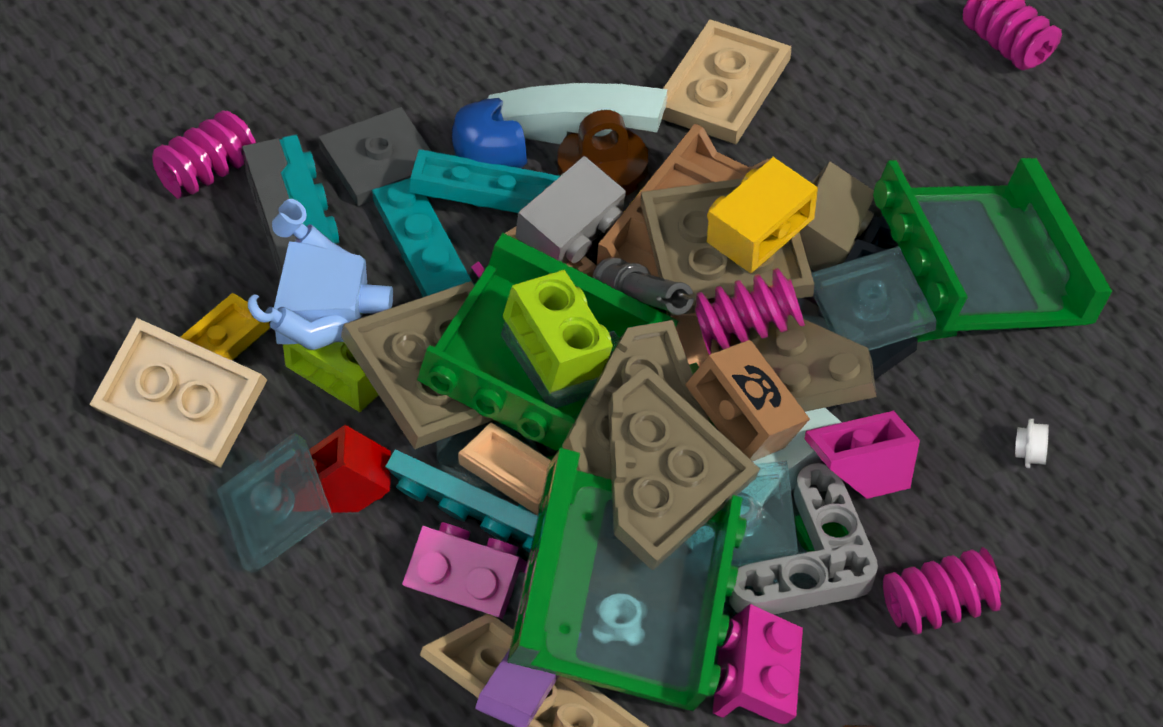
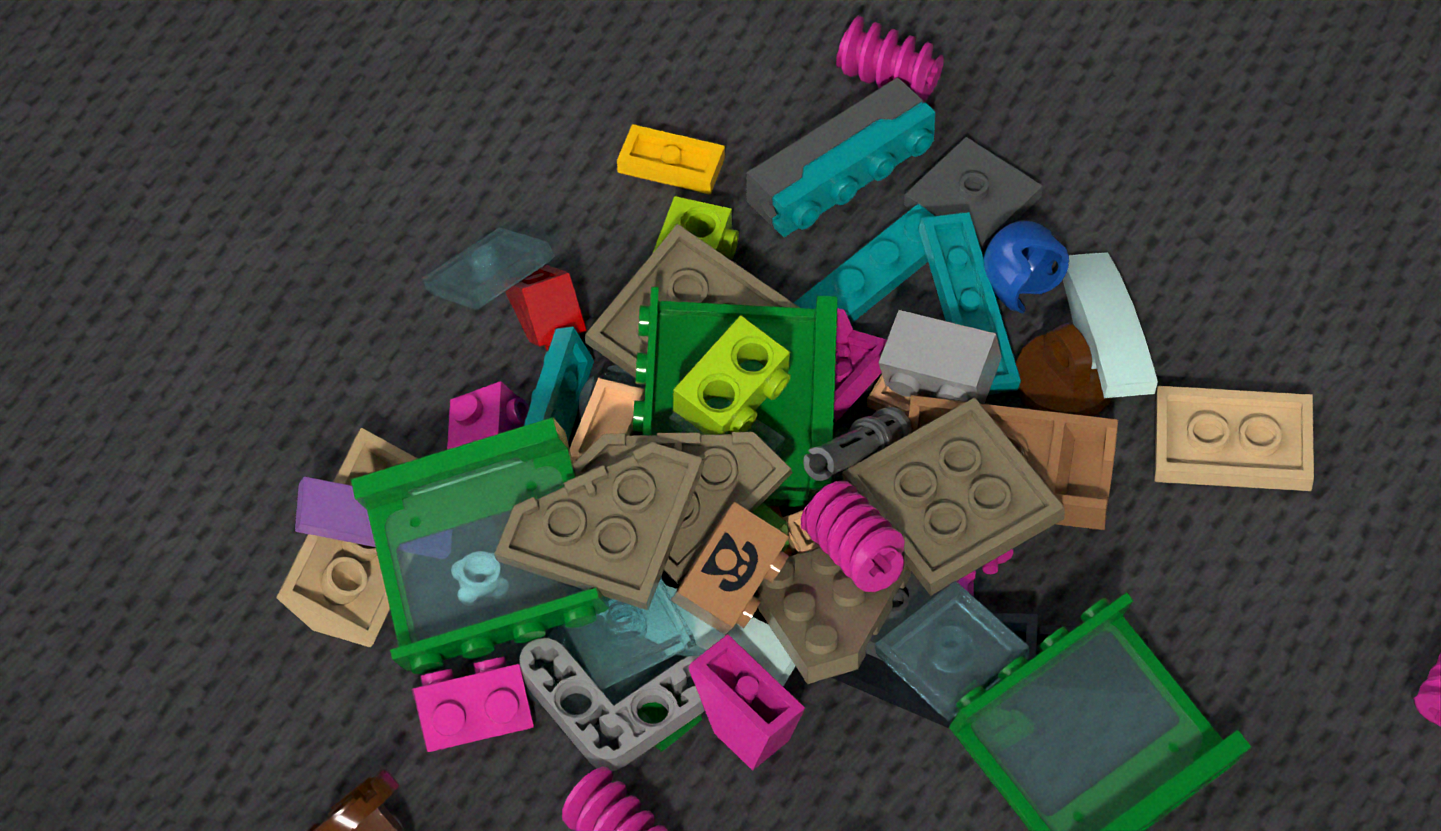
camera: 70 degrees right, 5 degrees up
(178, 392) = (582, 152): tan plate -> none
(318, 286) = (717, 194): light blue torso -> none
(761, 214) = (976, 500): yellow brick -> none
(838, 218) = (1061, 581): dark tan brick -> none

